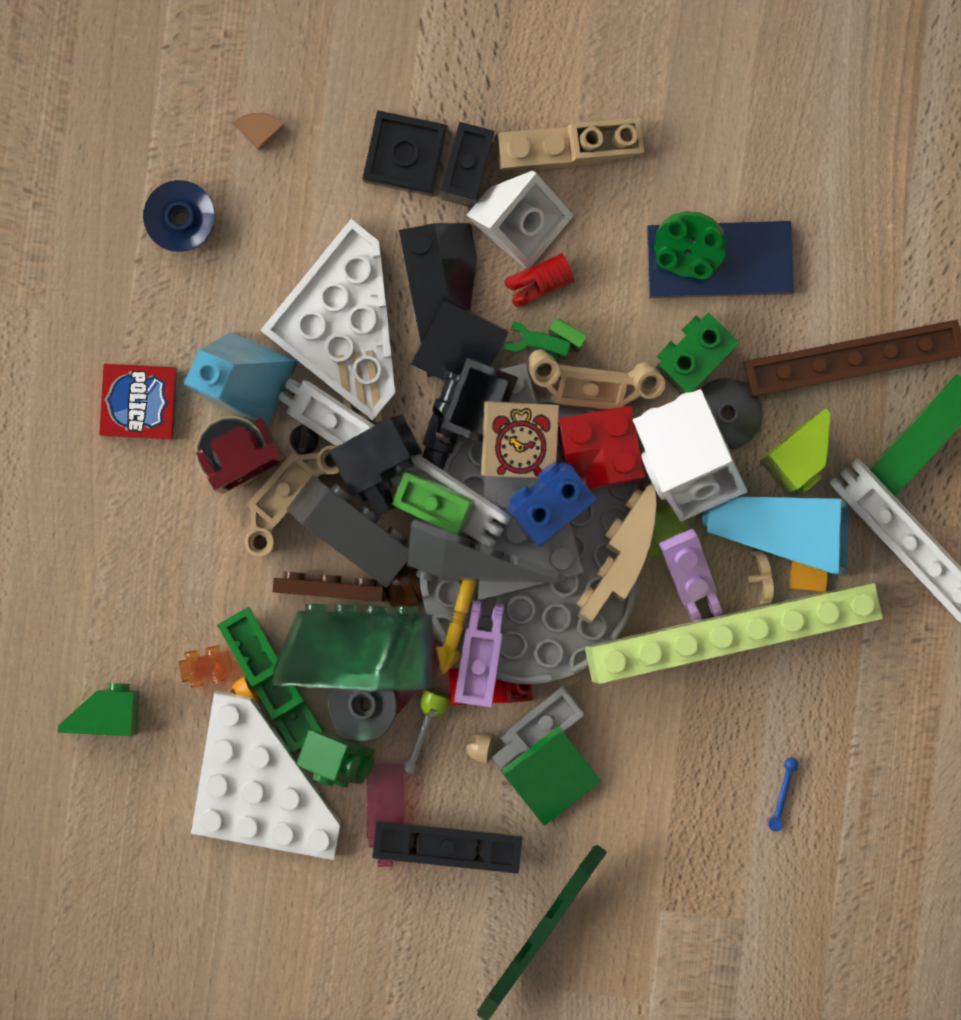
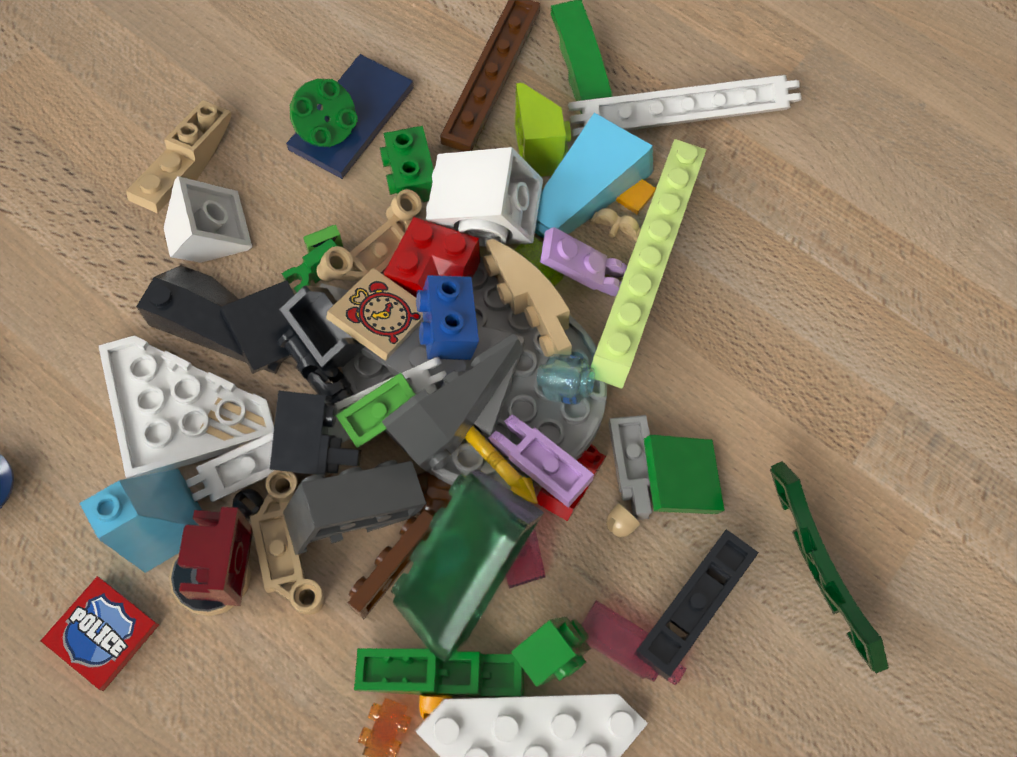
camera: 65 degrees left, 20 degrees down
(354, 720) = (522, 621): dark grey dish -> none
(404, 153) = (86, 279): black tile -> none
(432, 705) = (558, 539): hinge -> none
(467, 164) = (133, 233): black panel -> none
(547, 275) = (266, 235): red hinge -> none
(563, 632) = (566, 379): none -> clear light blue head
(775, 822) = (824, 330): blue hinge -> none

